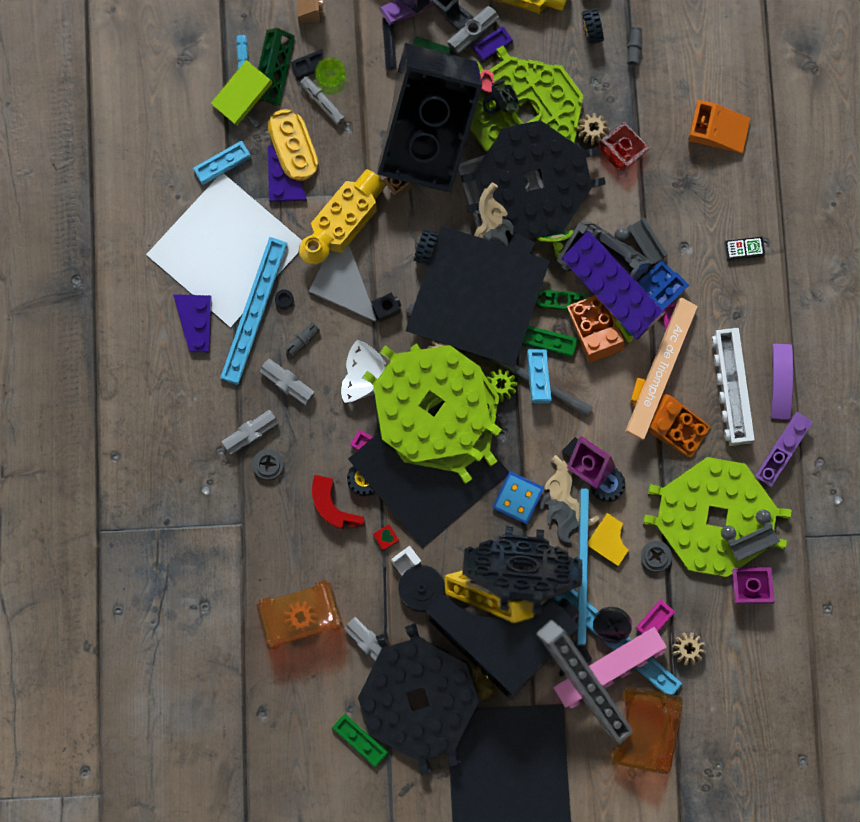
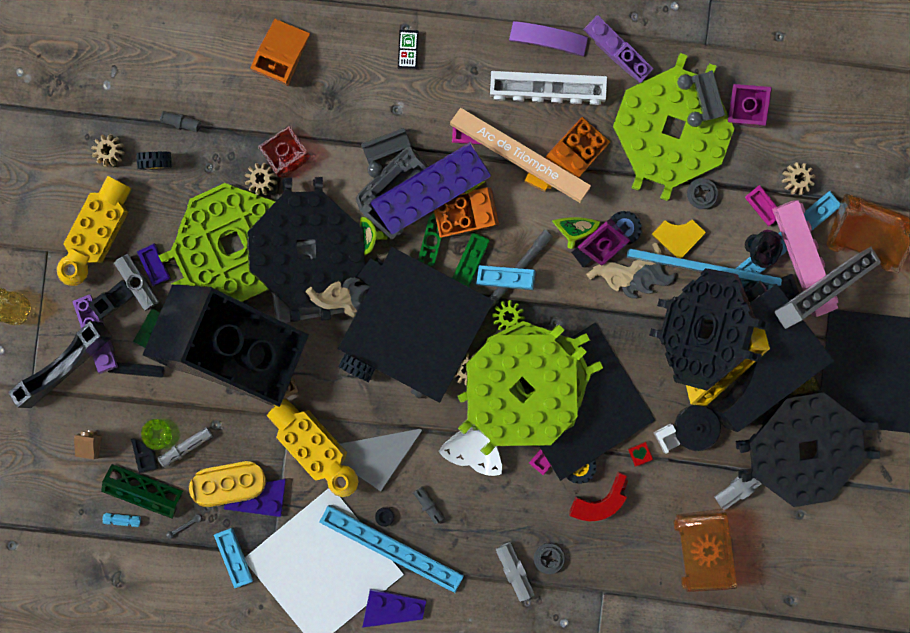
camera: 80 degrees left, 10 degrees up
(241, 92) = (164, 527): lime tile -> none
(287, 382) = (470, 527): light grey piece -> none
(360, 740) = (832, 510): green tile -> none
(384, 314) = (410, 425): black brick -> none
(487, 79) = (195, 278): coral tile -> none
(504, 97) = (216, 263): black tile -> none
(518, 497) = (622, 318): dark azure slope -> none
(598, 434) = (576, 228): none -> shield
(663, 284) = (433, 139): blue slope -> none

